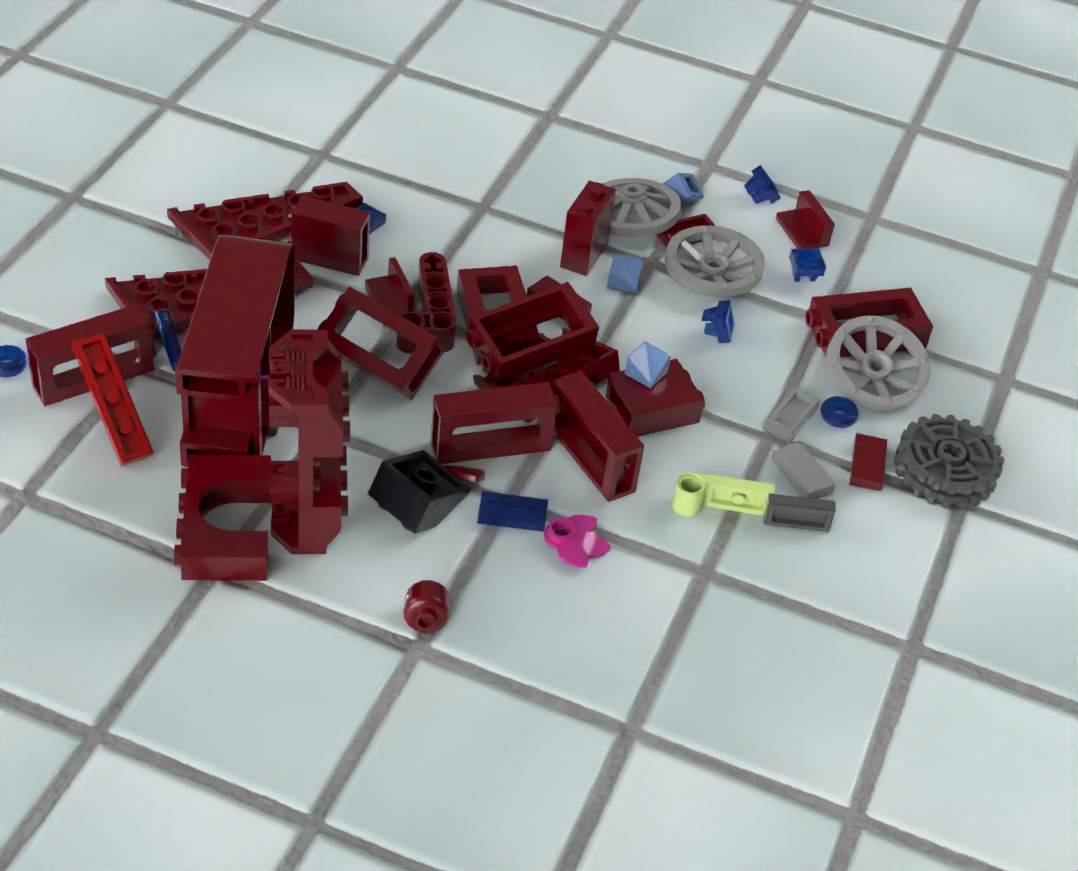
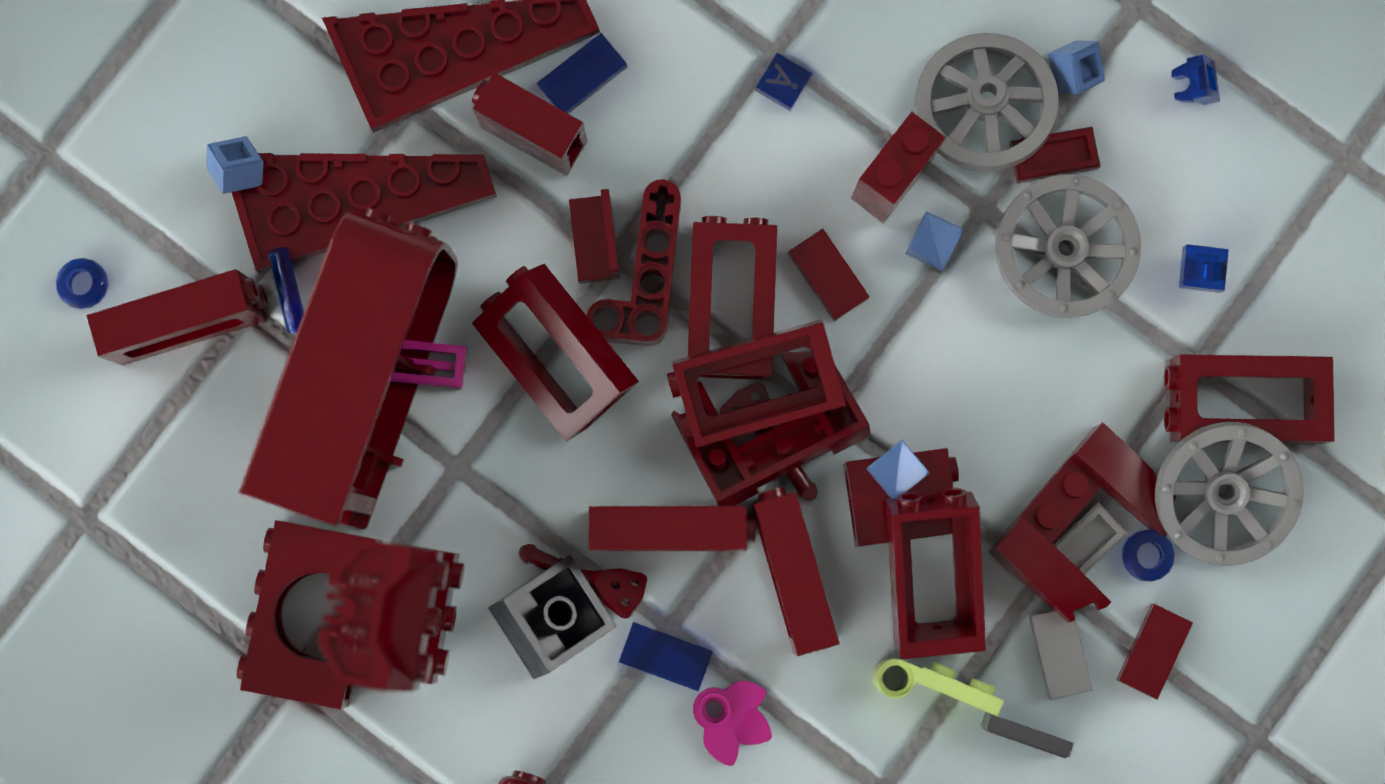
camera: 20 degrees right, 40 degrees up
(112, 399) = (191, 410): red tile -> none
(119, 275) = (234, 164): none -> medium blue slope
(494, 215) = (783, 81): none -> clear blue tile
(721, 423) = (967, 629): none -> dark red piece
(722, 321) = (1038, 365): clear blue tile -> none
(758, 405) = (1027, 544): none -> dark red wedge
(808, 223) = (1235, 170): dark red panel -> none
(948, 461) = (1261, 712): dark grey piece -> none

